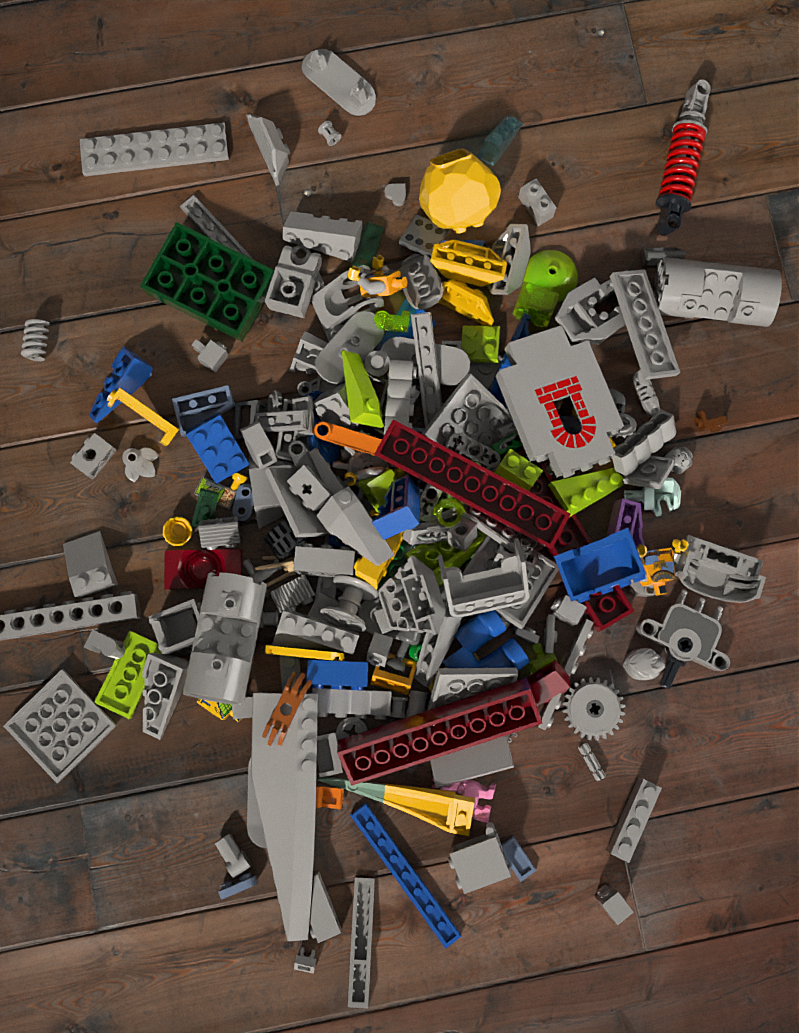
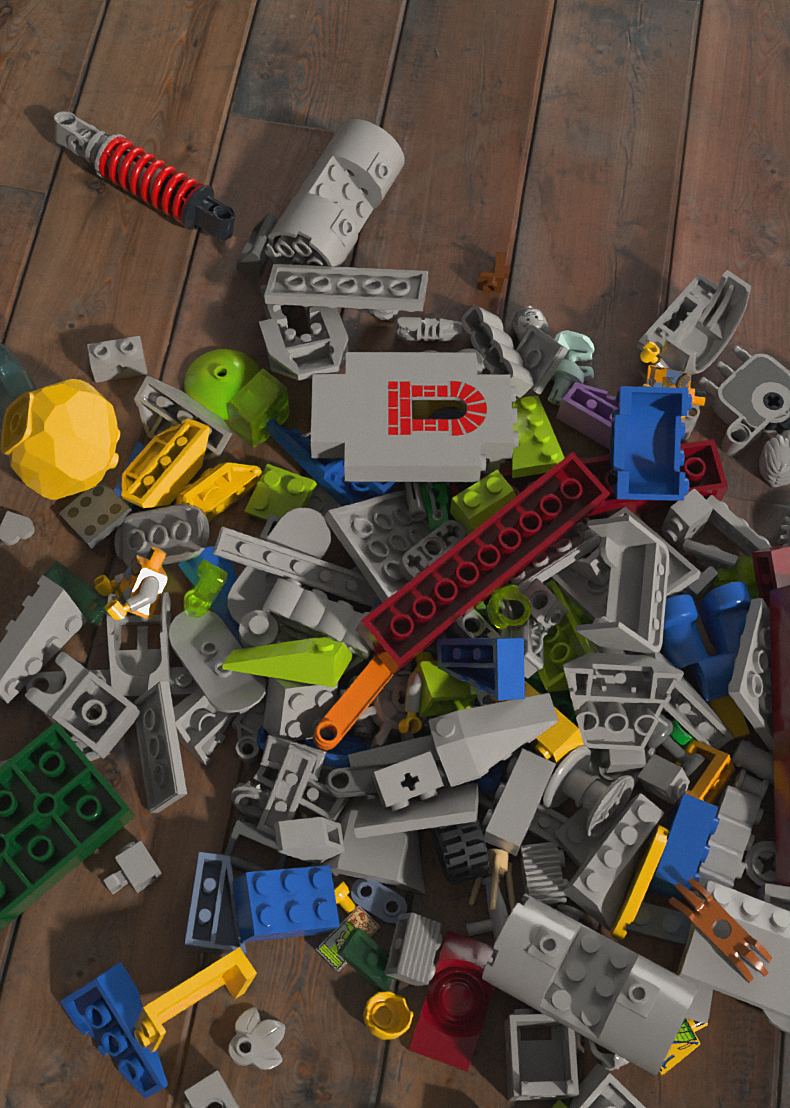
camera: 70 degrees left, 15 degrees down
(285, 337) = (159, 748): none -> light grey tile

